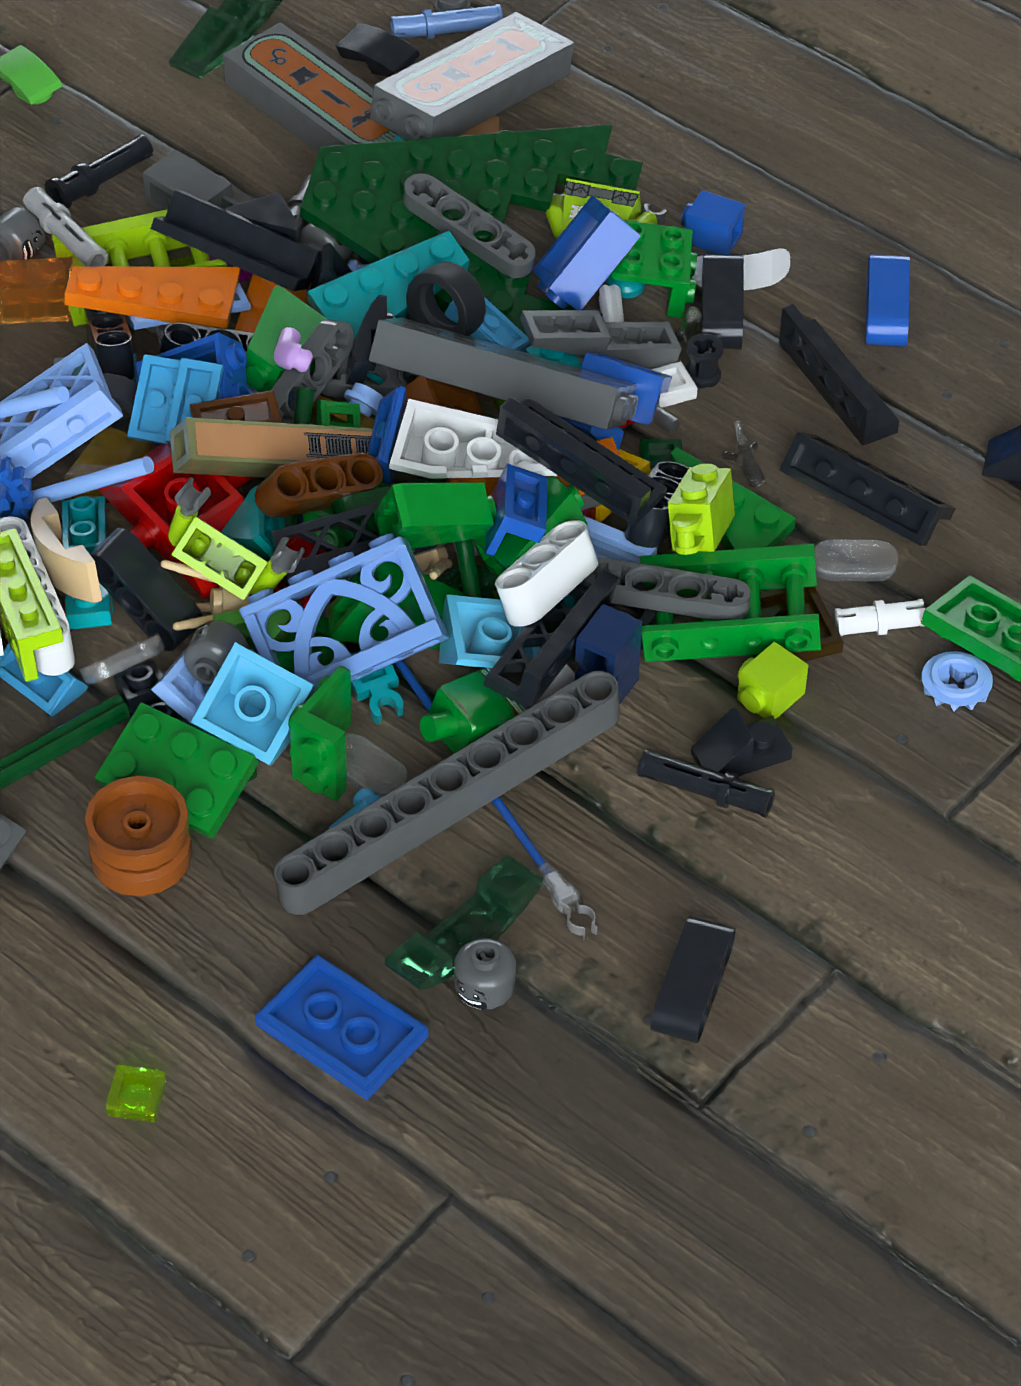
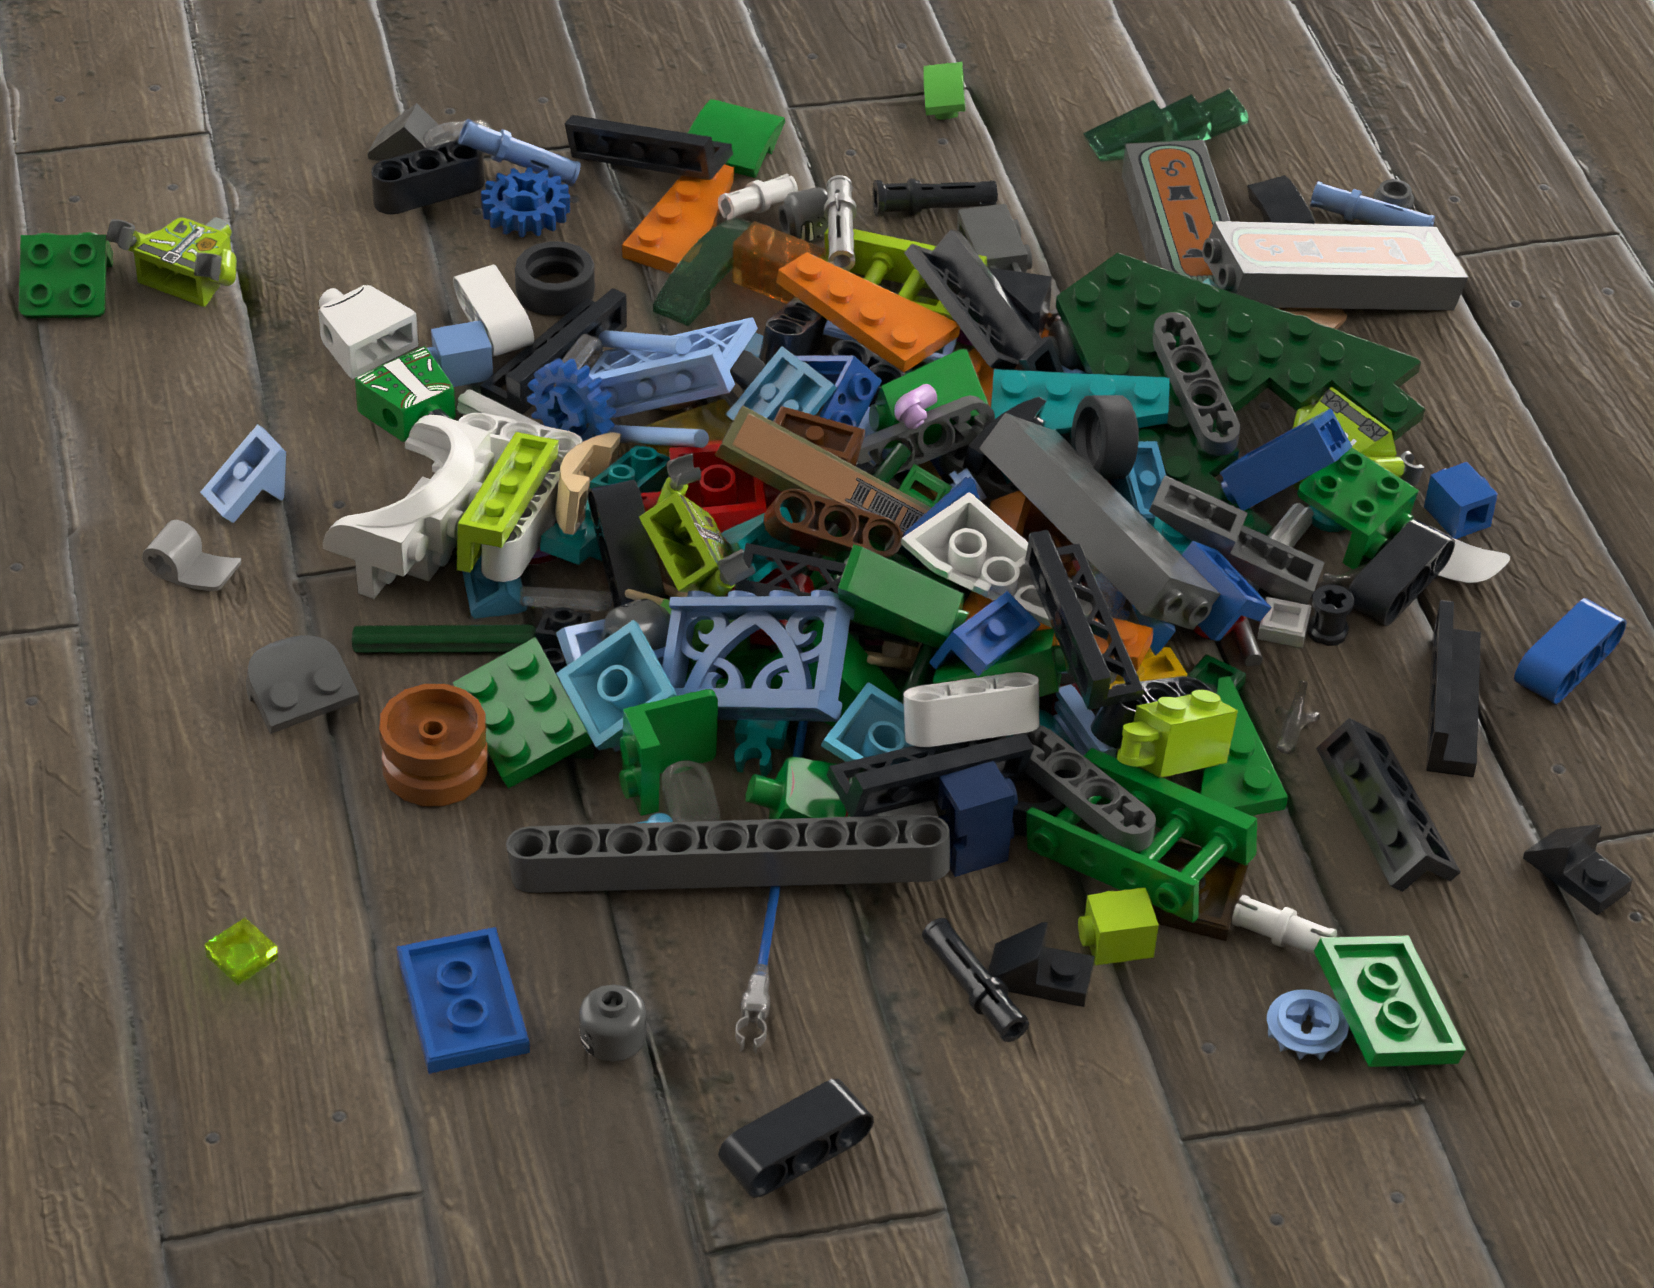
camera: 35 degrees right, 5 degrees down
(487, 914) = (661, 982): clear green slope -> none
(855, 560) = (1314, 866): clear tile -> none

